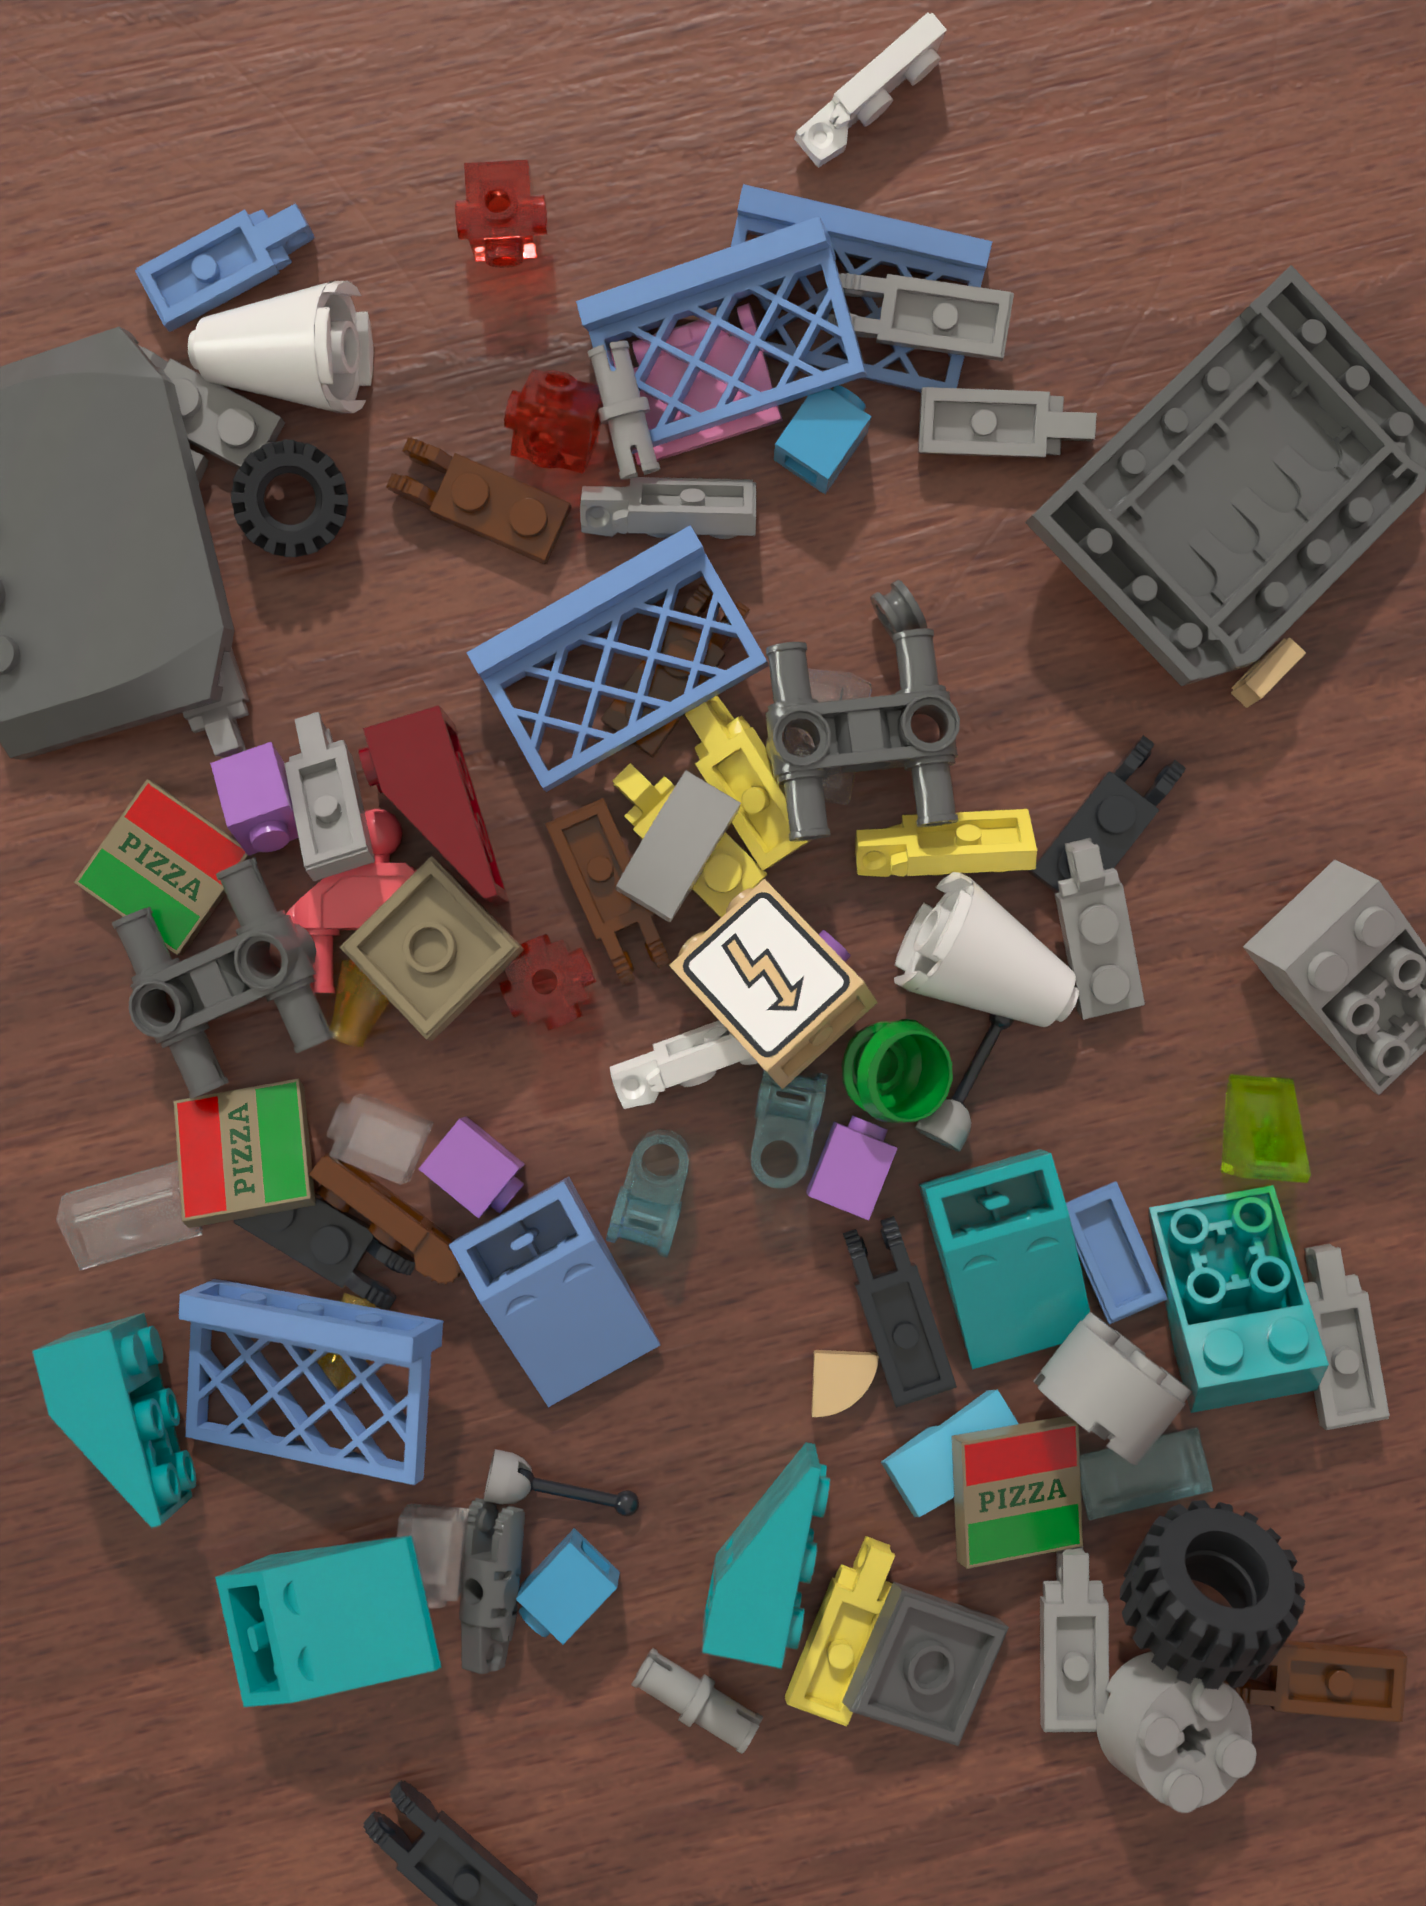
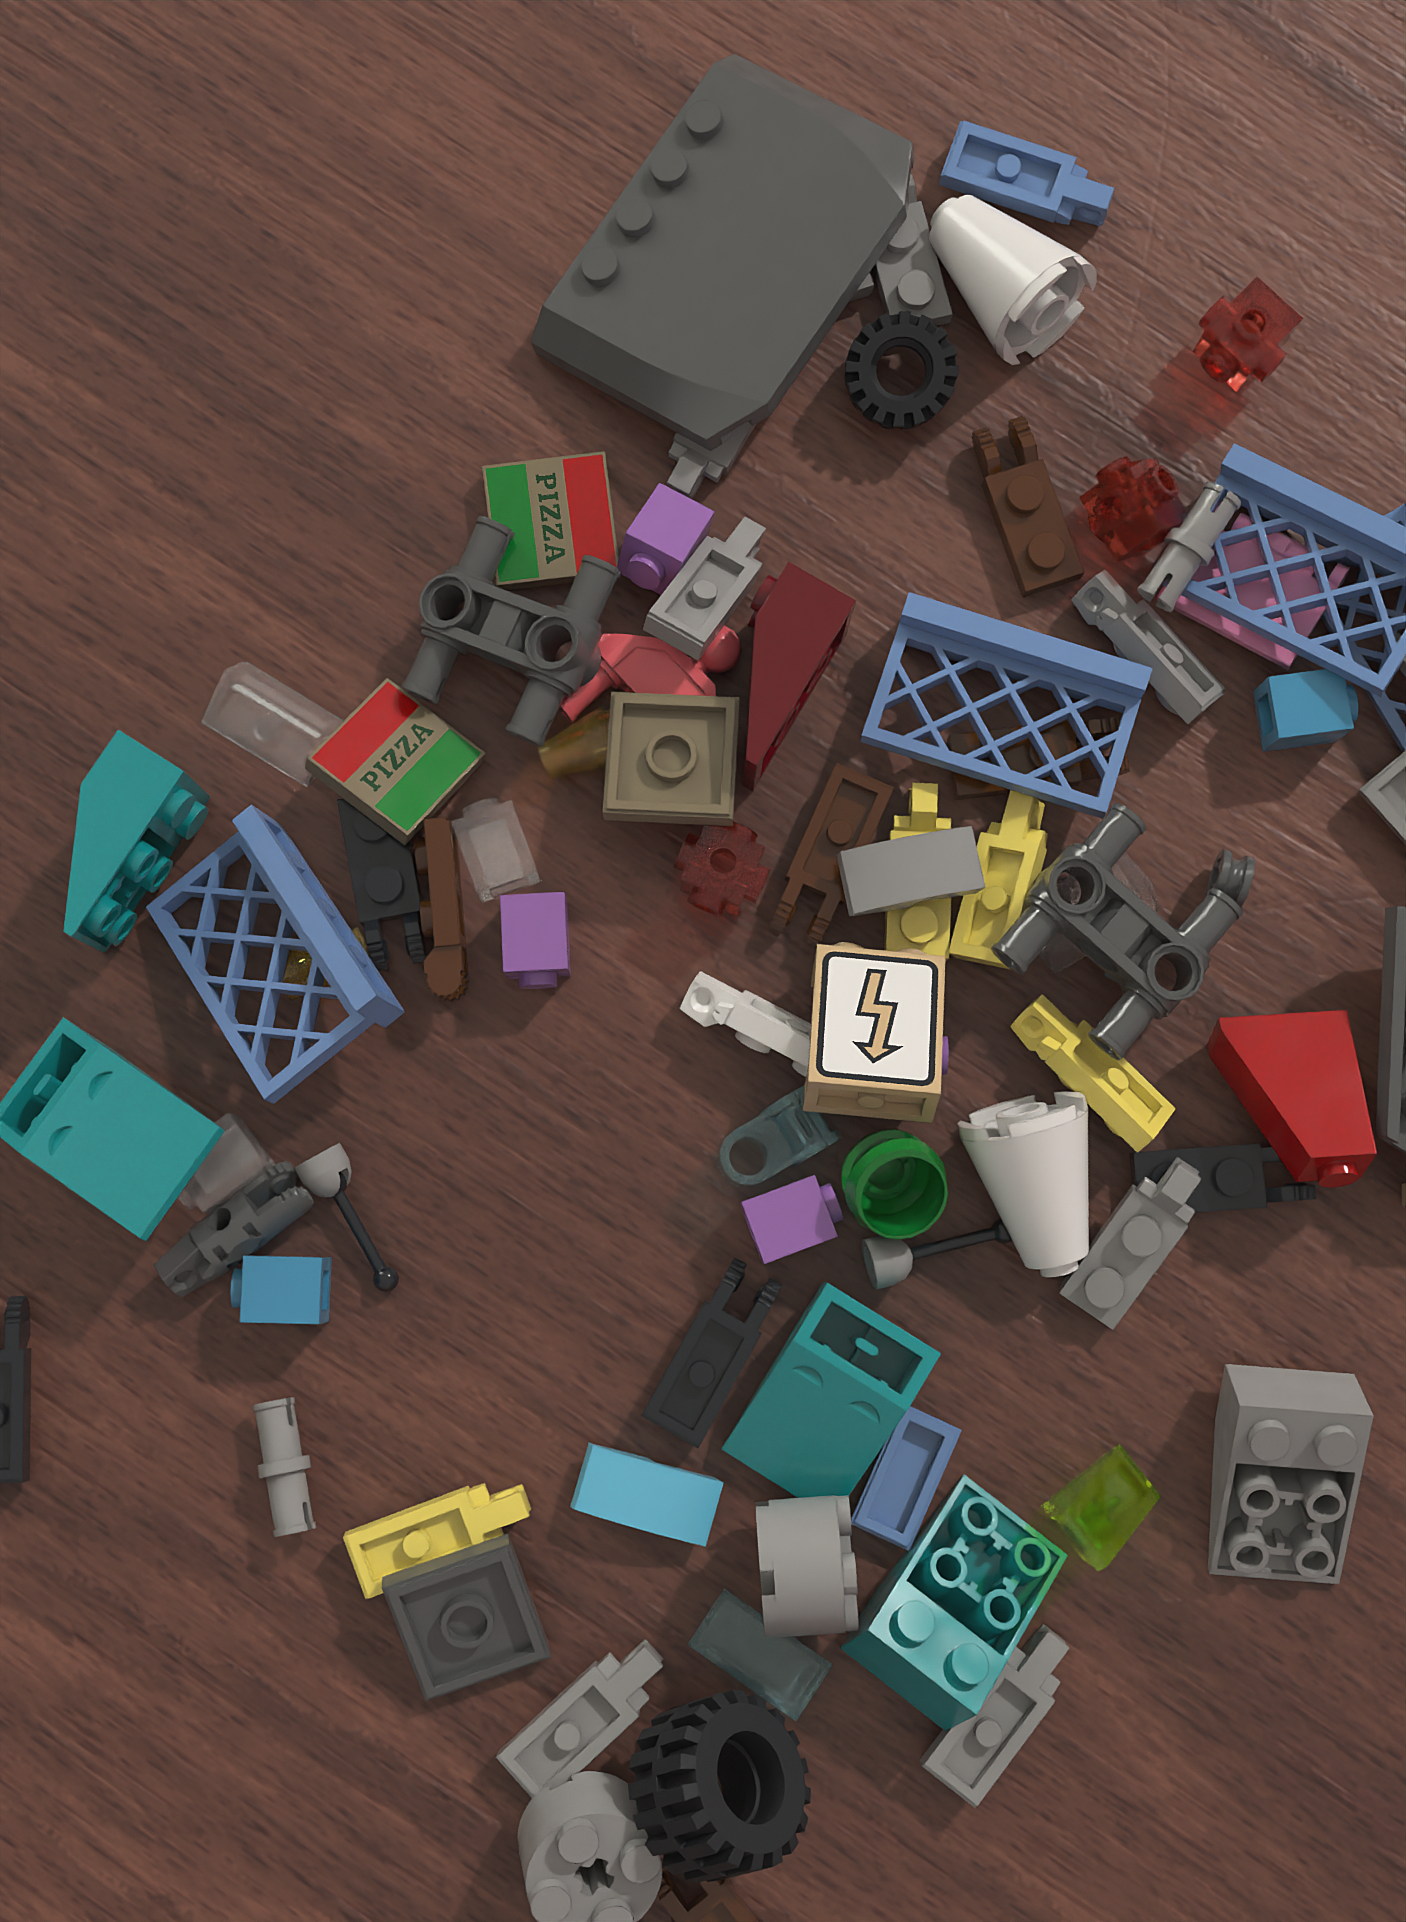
camera: 40 degrees right, 5 degrees down
(555, 1292) = (498, 1080): medium blue slope -> none
(650, 1197) = (631, 1088): clear light blue piece -> none
(756, 1573) = (419, 1422): teal slope -> none
(840, 1379) = (623, 1356): tan tile -> none
(1017, 1491) = (661, 1566): tile -> none
(1099, 707) = (1300, 1089): none -> red slope

